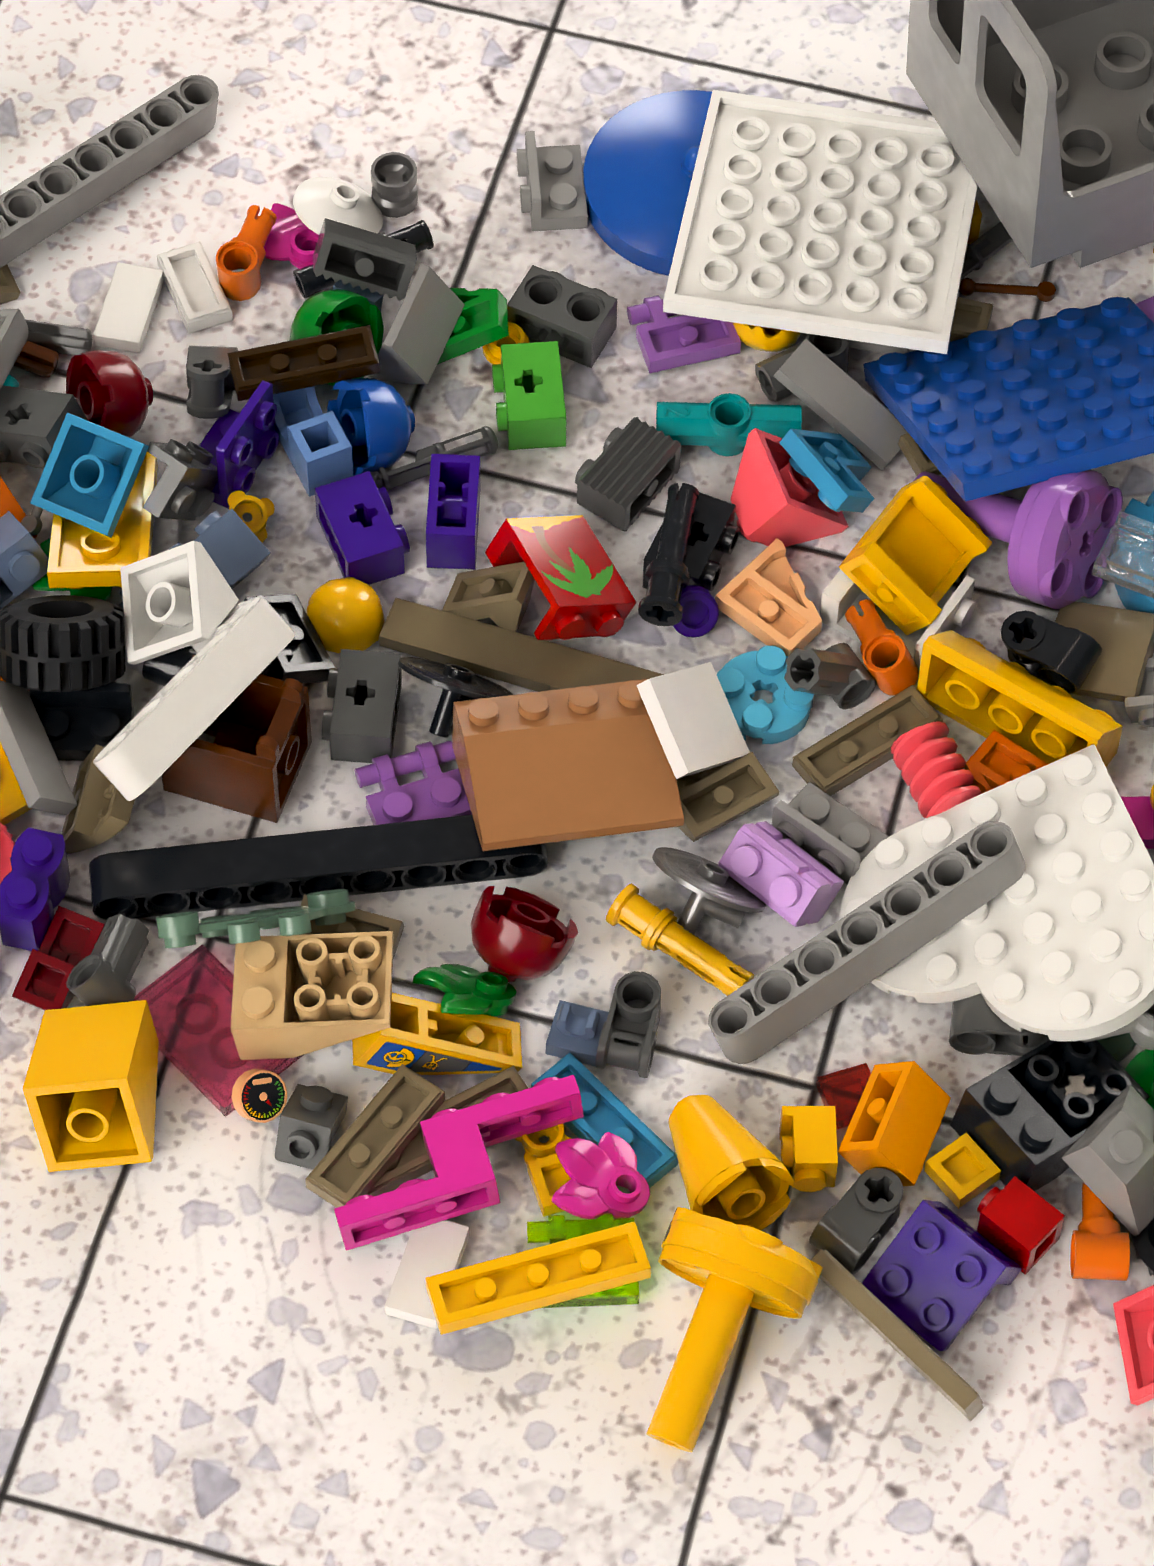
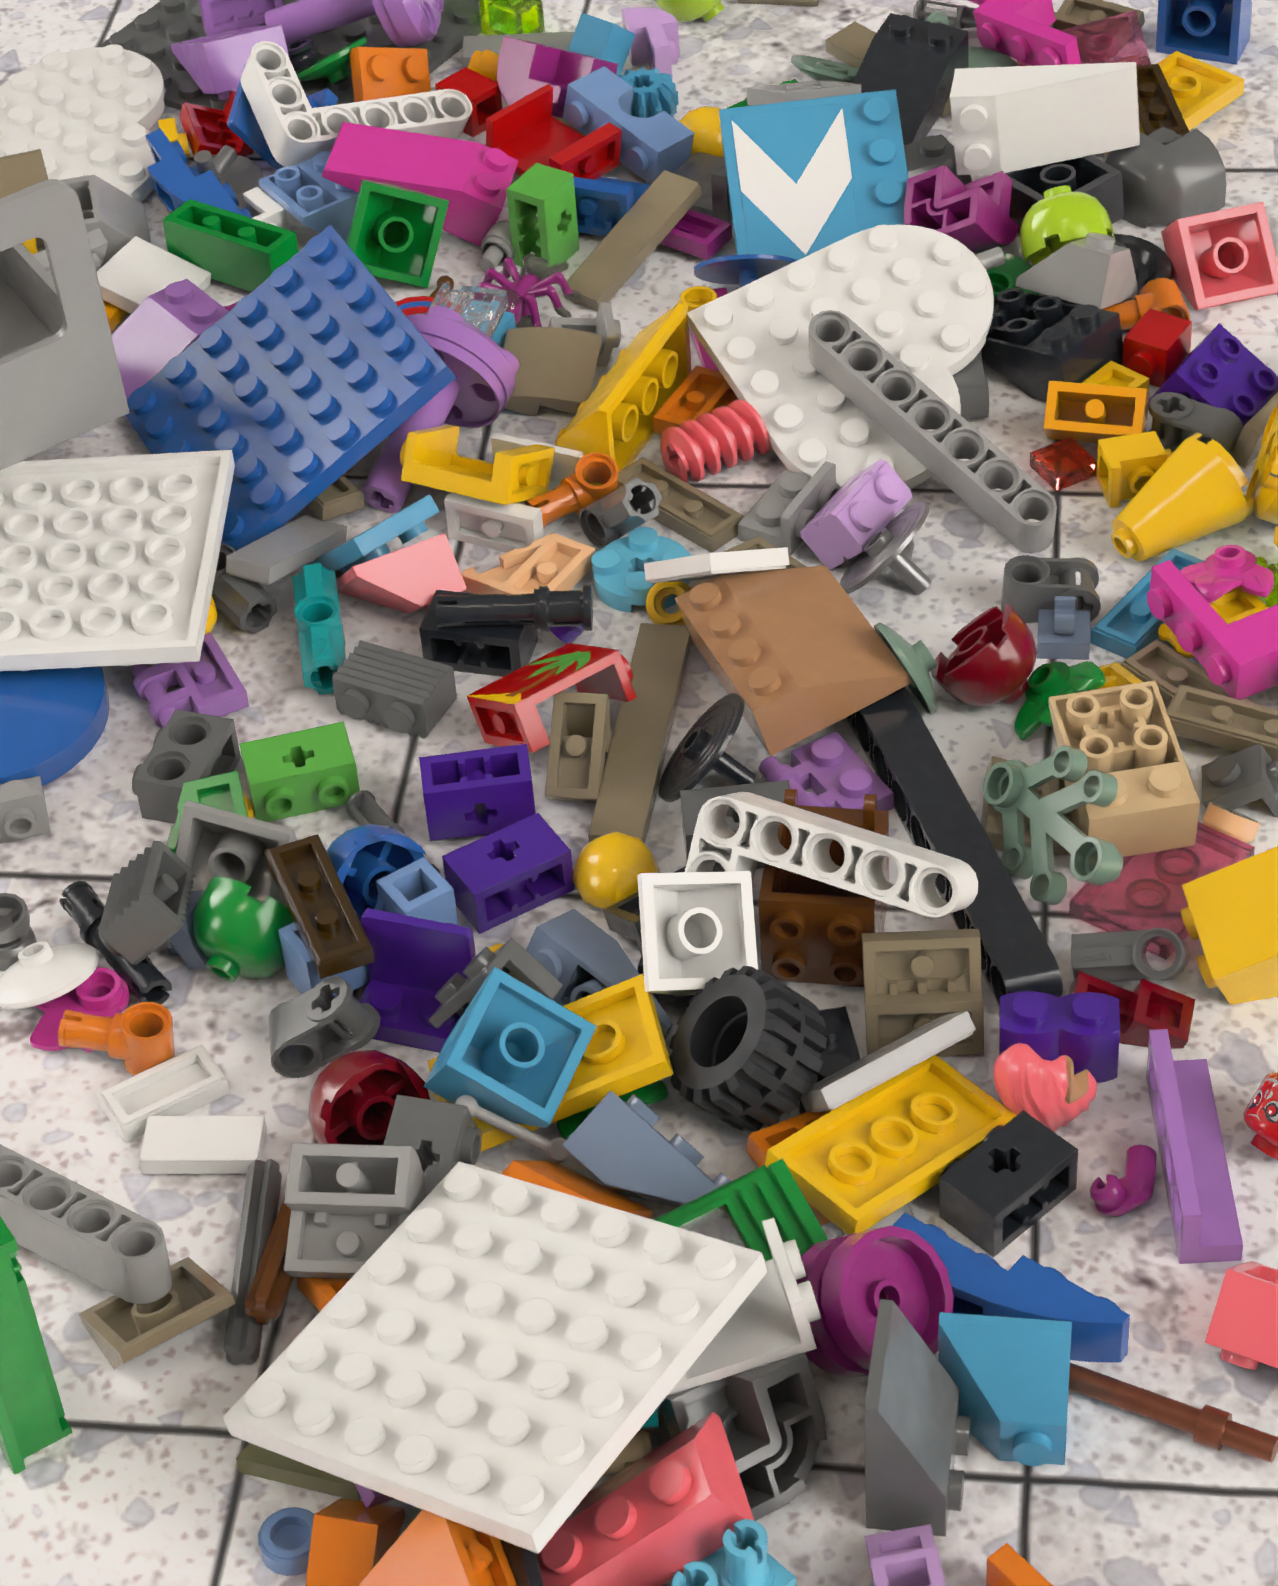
camera: 95 degrees left, 15 degrees down
(524, 856) = (916, 661): none -> sand green dish
(661, 931) = (938, 589): yellow pin -> none
(1050, 650) = (569, 379): black piece -> none

